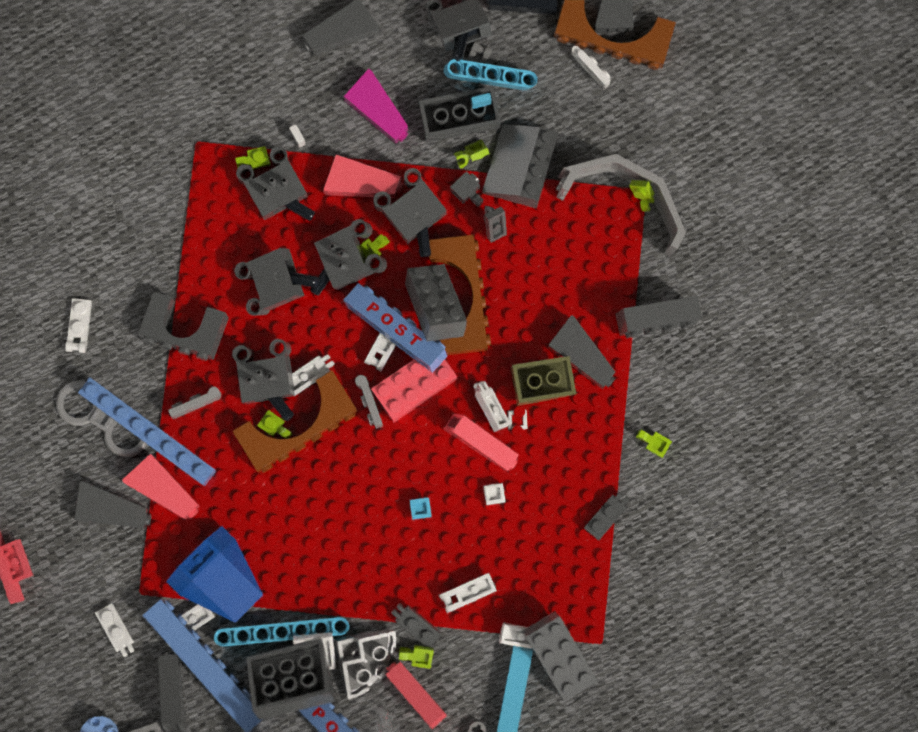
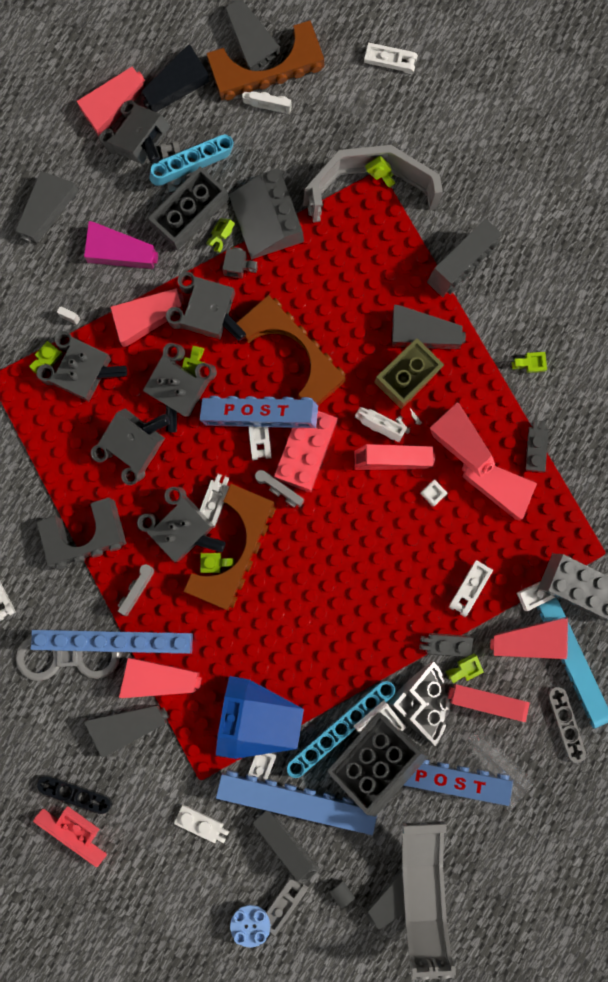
camera: 25 degrees left, 0 degrees up
(33, 532) = (73, 798): none -> black beam
(420, 508) = (383, 546): medium azure plate -> none
(435, 302) = (278, 369): dark grey brick -> none
(481, 100) = (199, 182): medium azure tile -> none
(491, 673) = (534, 641): none -> coral slope
(495, 223) = (279, 273): dark grey tile -> none
(547, 464) = (461, 438): none -> coral slope
(553, 528) = (504, 489): none -> coral slope
(723, 99) = (390, 57): none -> white plate

